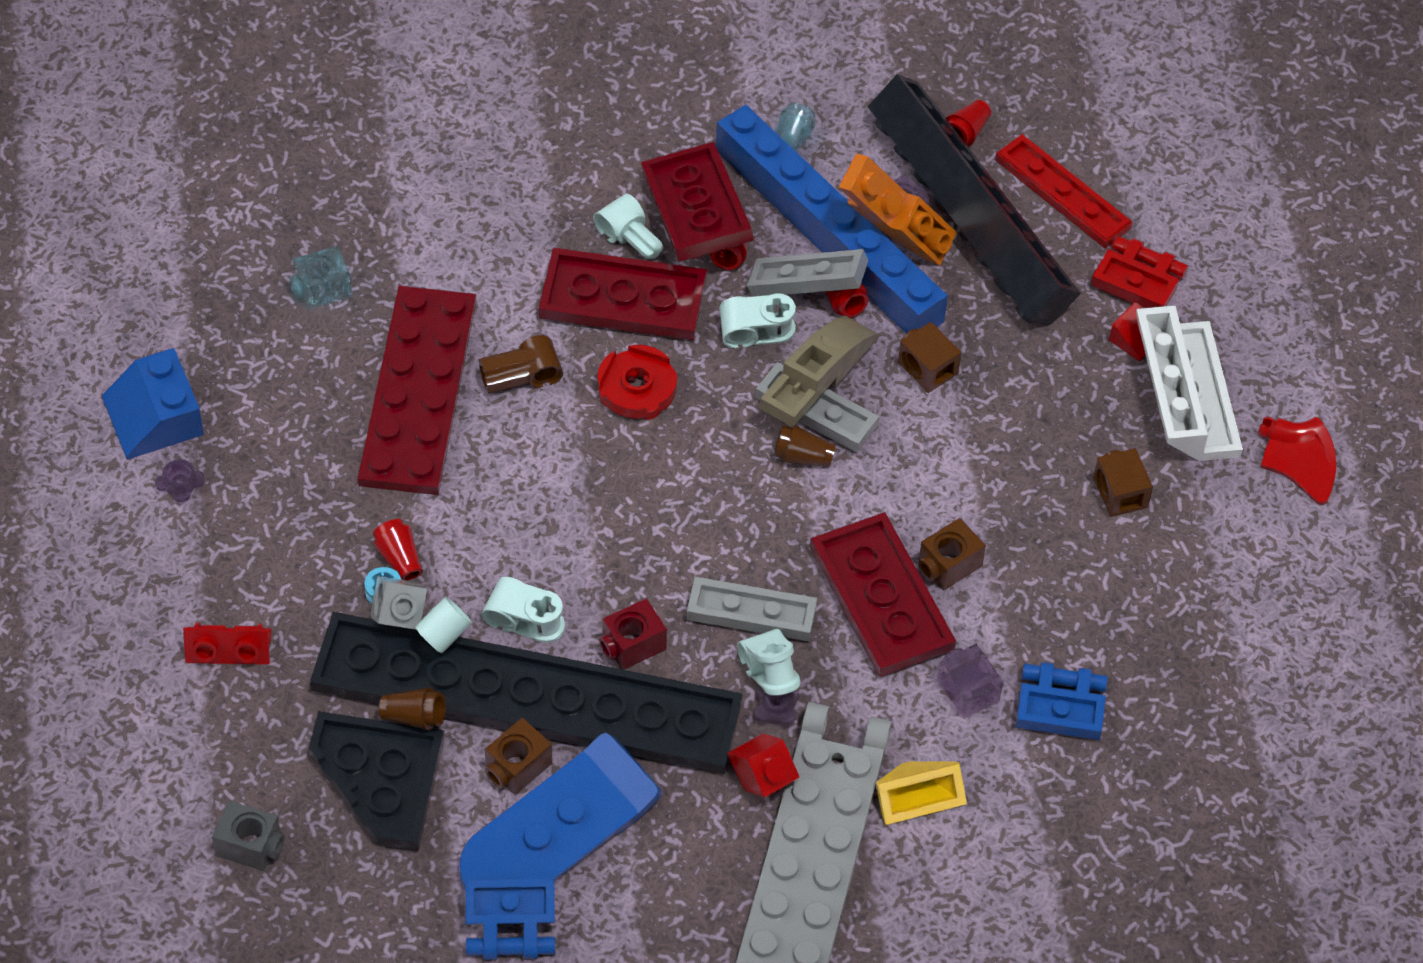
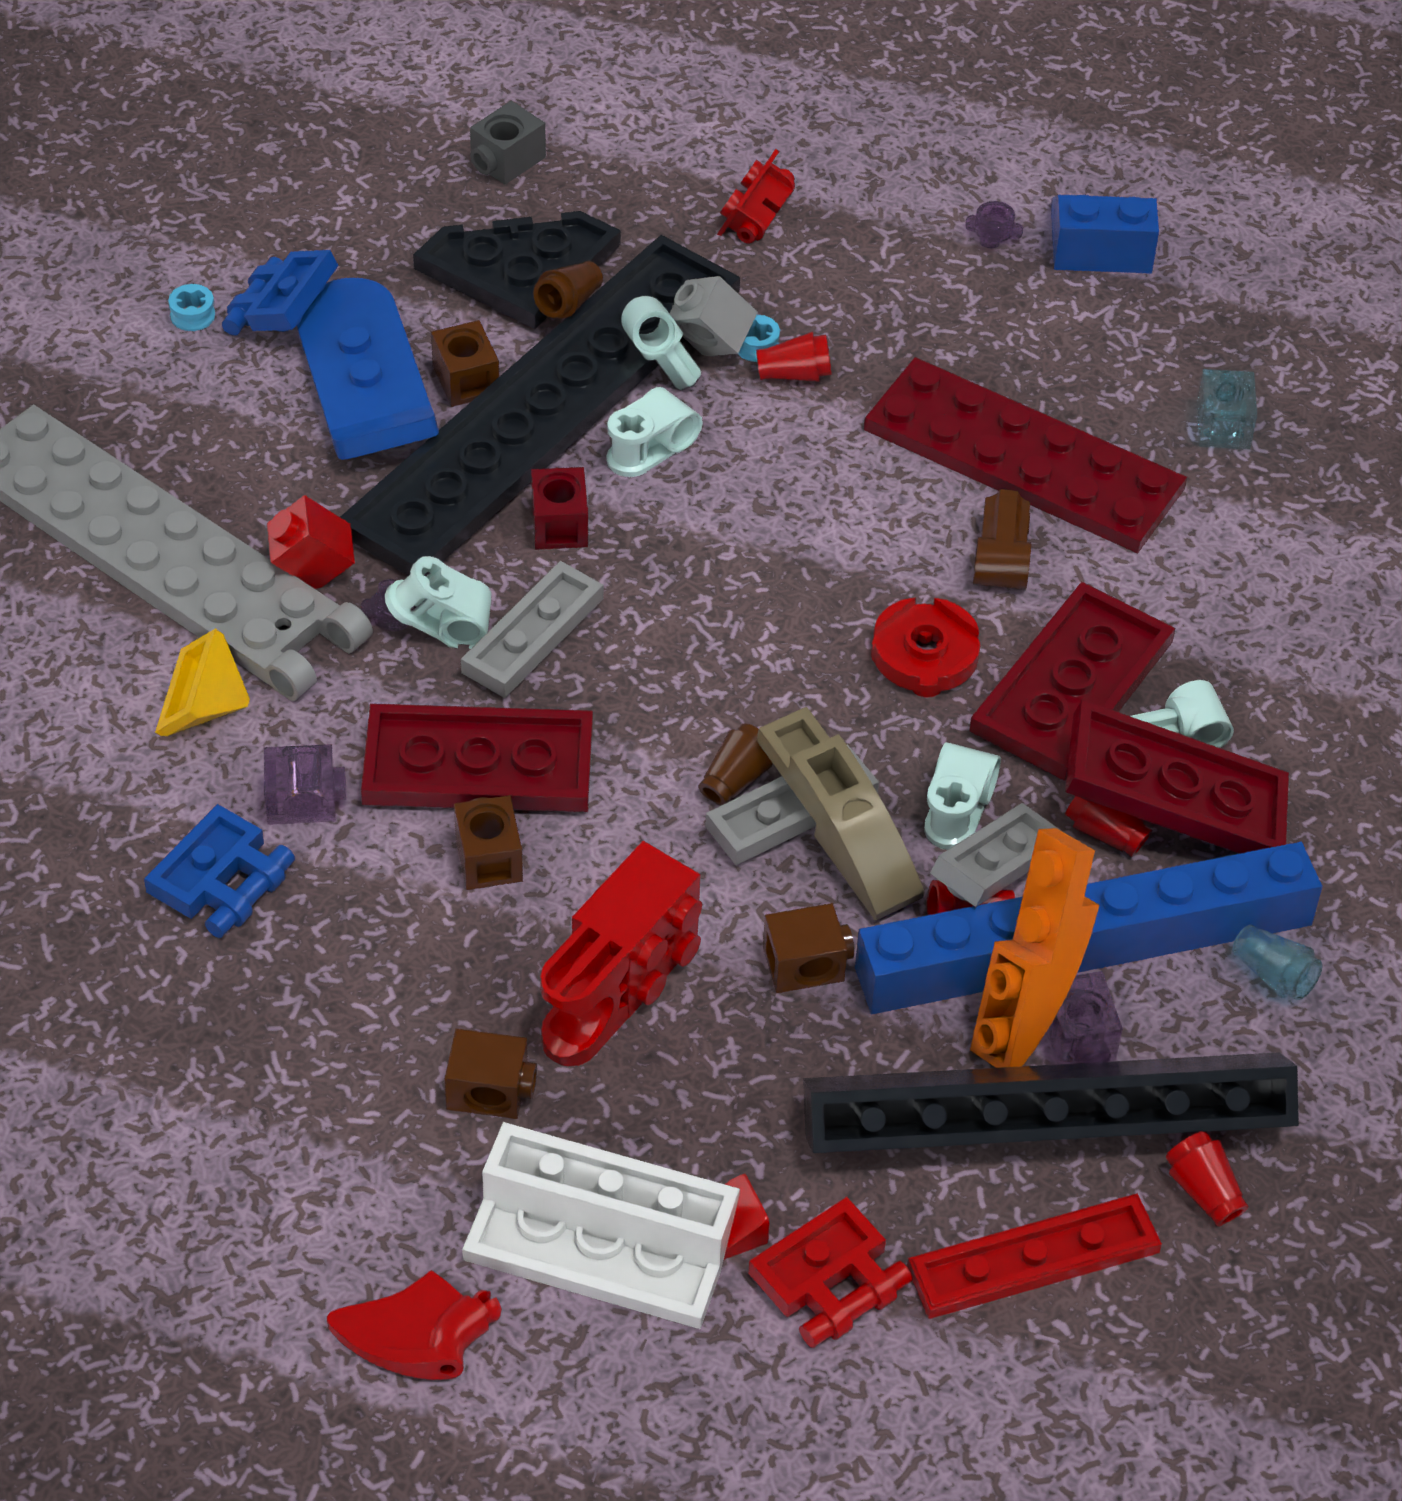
camera: 115 degrees right, 5 degrees down
(1011, 434) = (619, 953): none -> red brick

